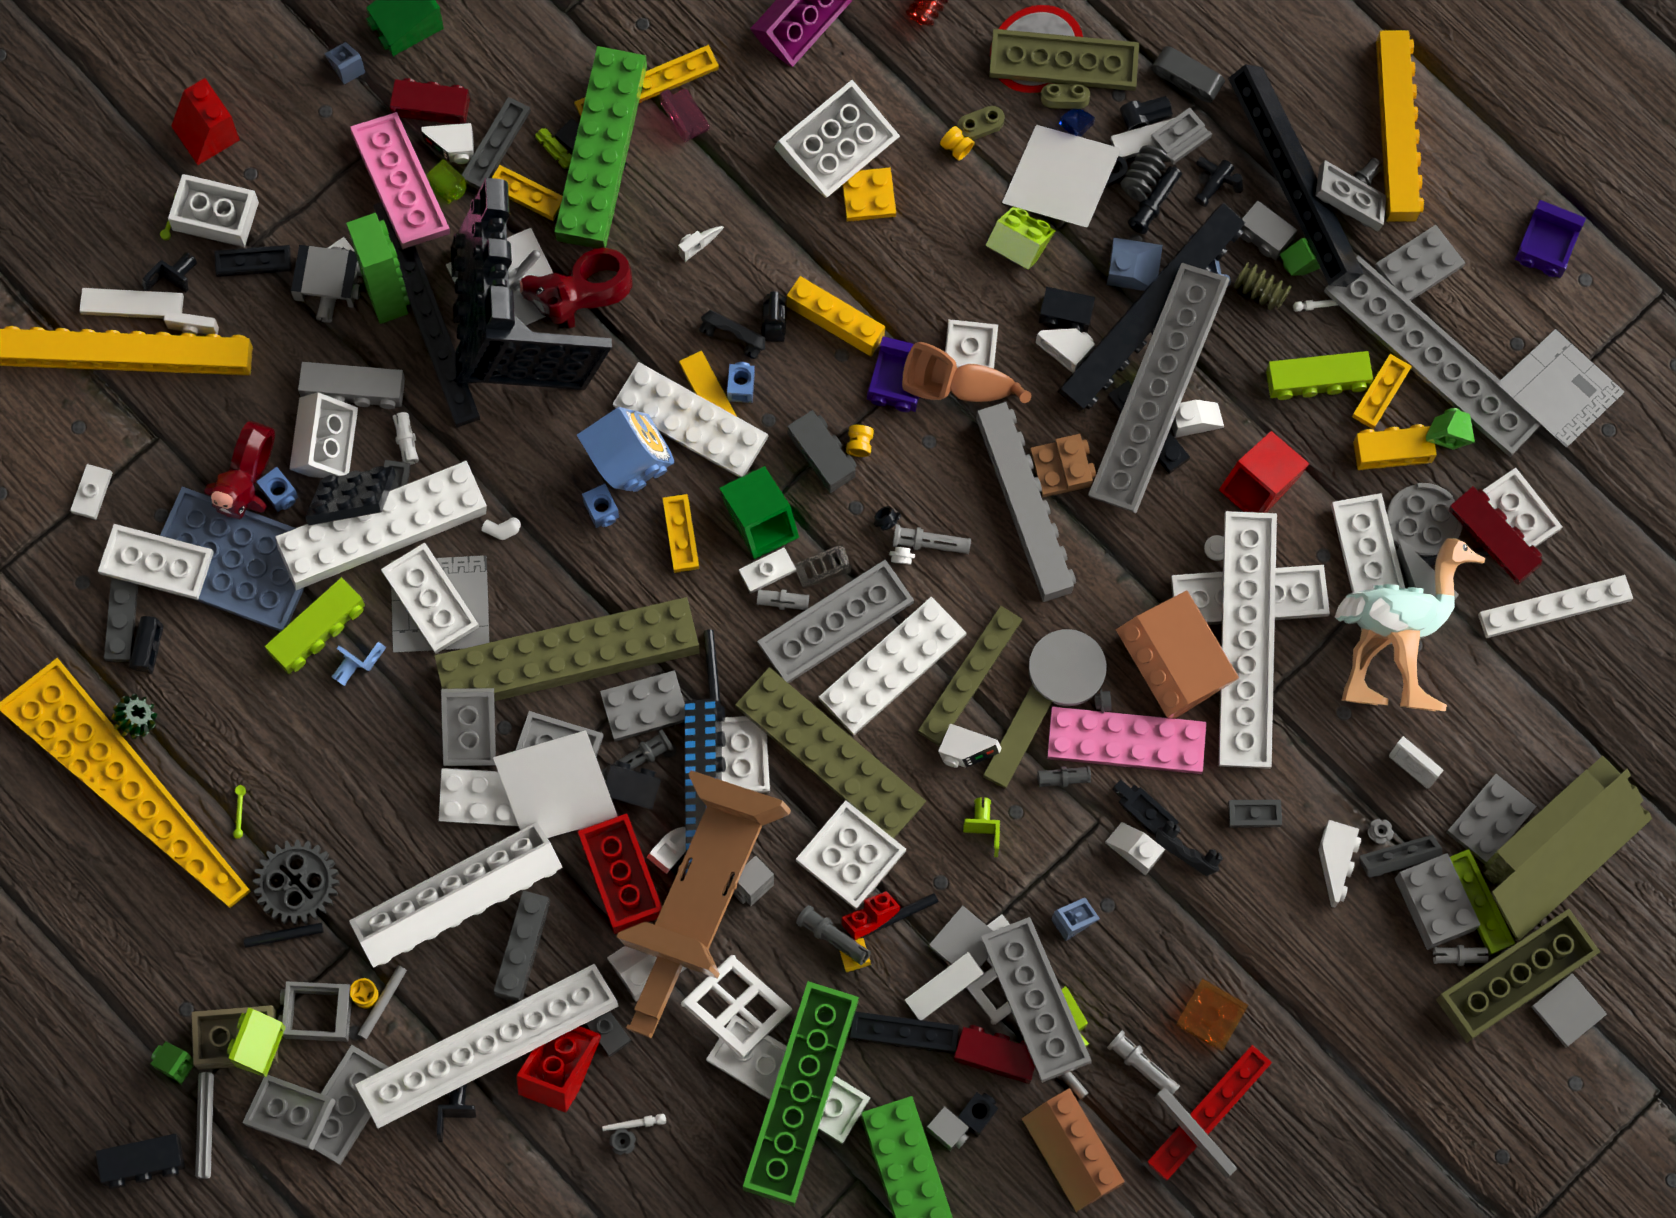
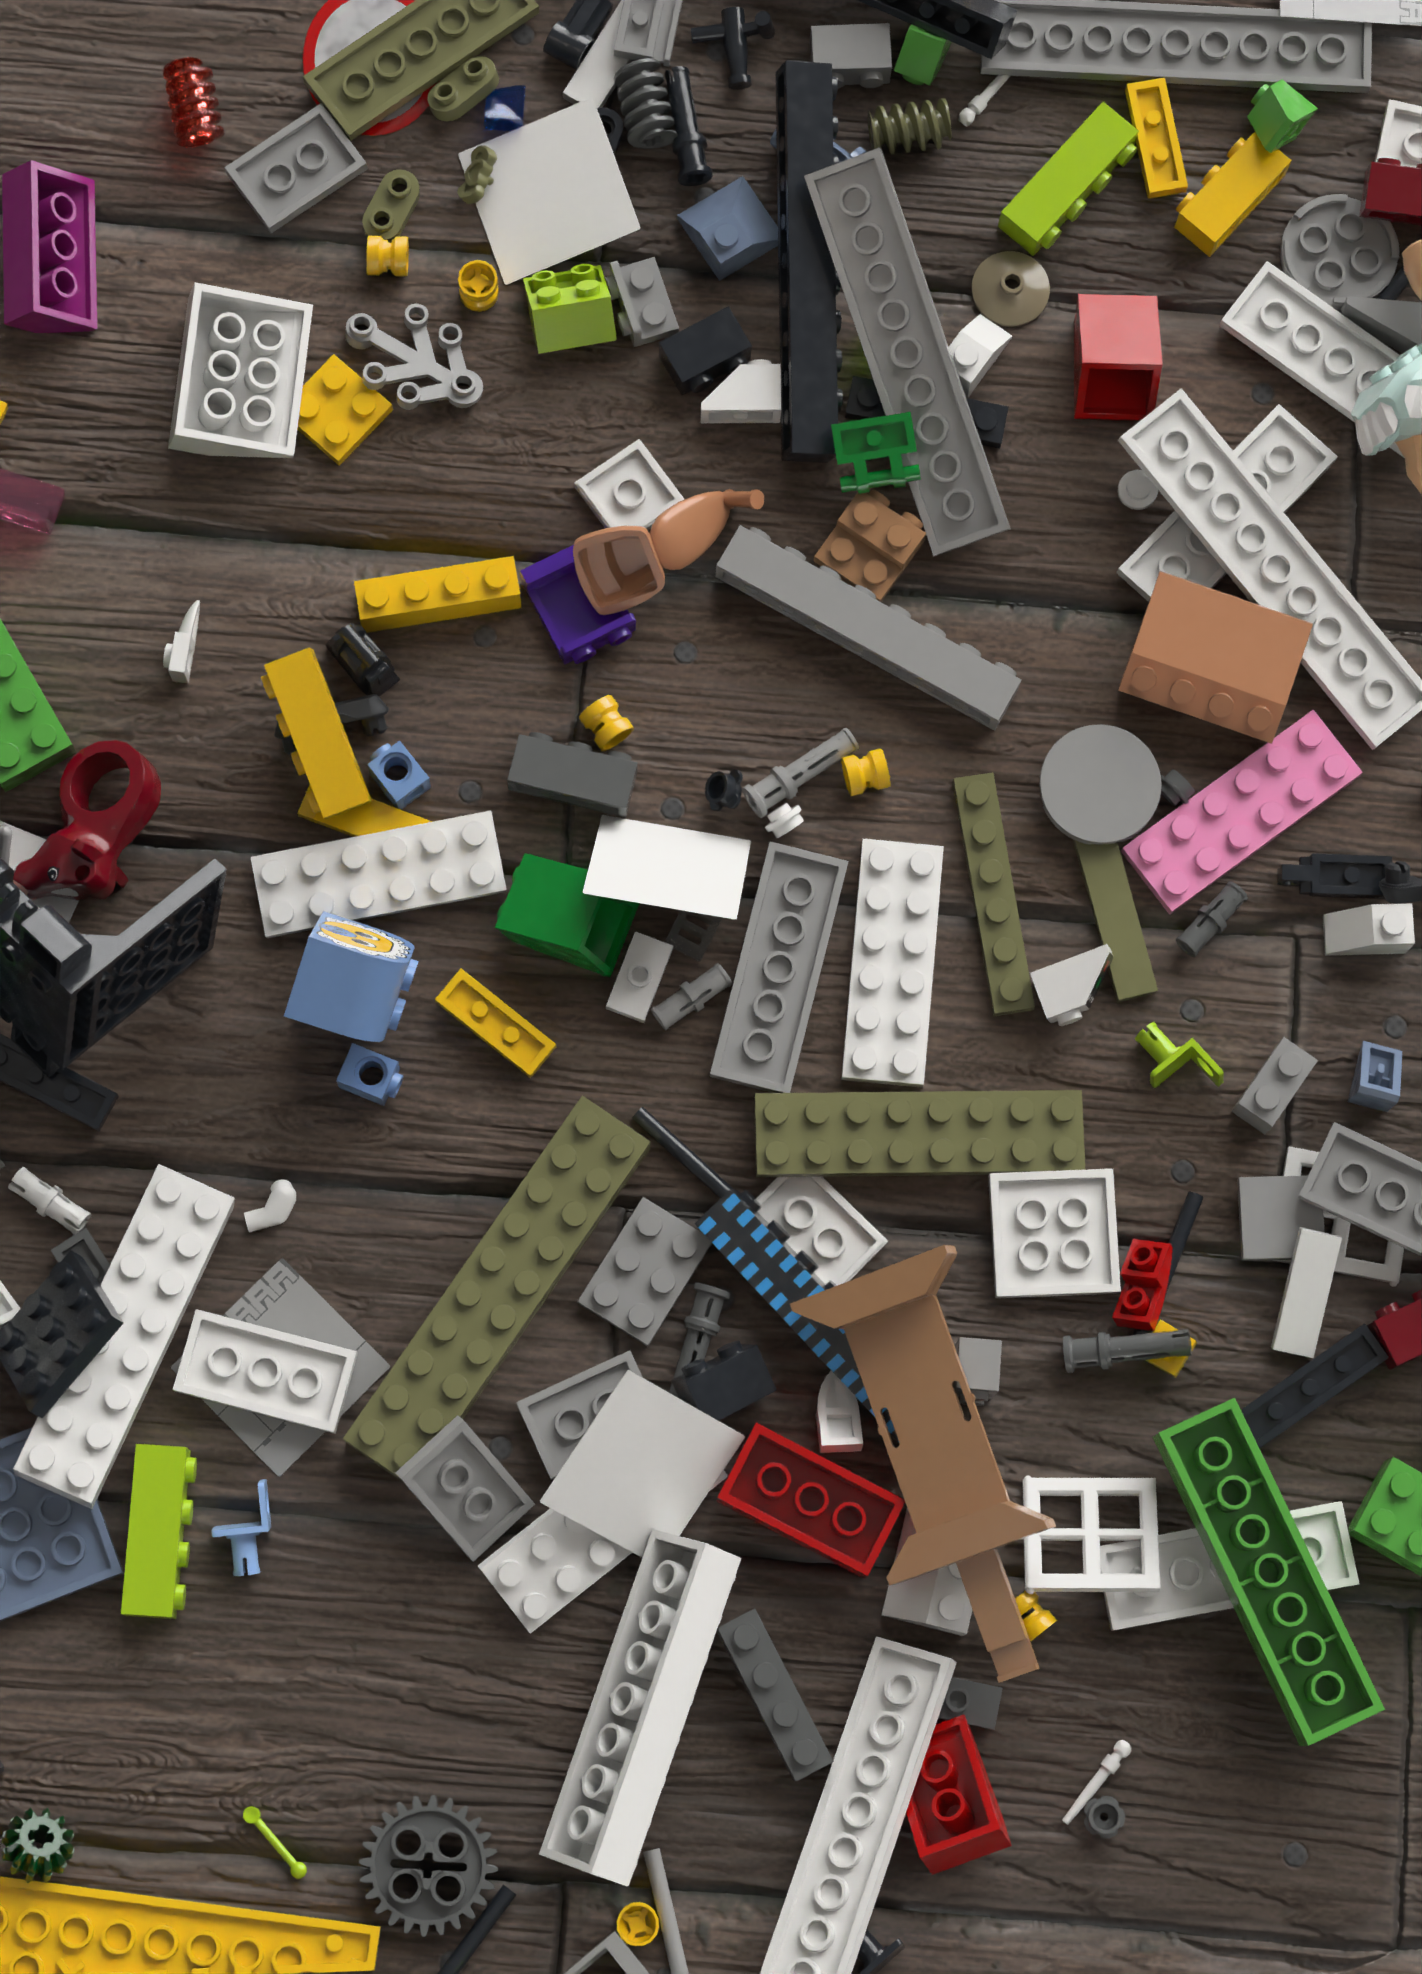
camera: 45 degrees left, 5 degrees up
(672, 1018) = (1039, 1619): none -> yellow wheel
(718, 329) = (317, 733): none -> yellow brick
(823, 527) = (668, 867): none -> white sticker
(925, 203) = (418, 362): none -> light grey plant
(952, 68) = (296, 168): none -> light grey plate
(960, 566) = (865, 772): none -> yellow wheel
(989, 186) = (478, 276): none -> yellow wheel
(1020, 878) = (1274, 1085): none -> light grey brick
(1034, 141) = (478, 174): none -> olive piece
(1059, 262) = (643, 301): none -> light grey bracket
(1105, 414) = (876, 439): none -> green plate
(1242, 414) = (1006, 305): none -> dark tan dish

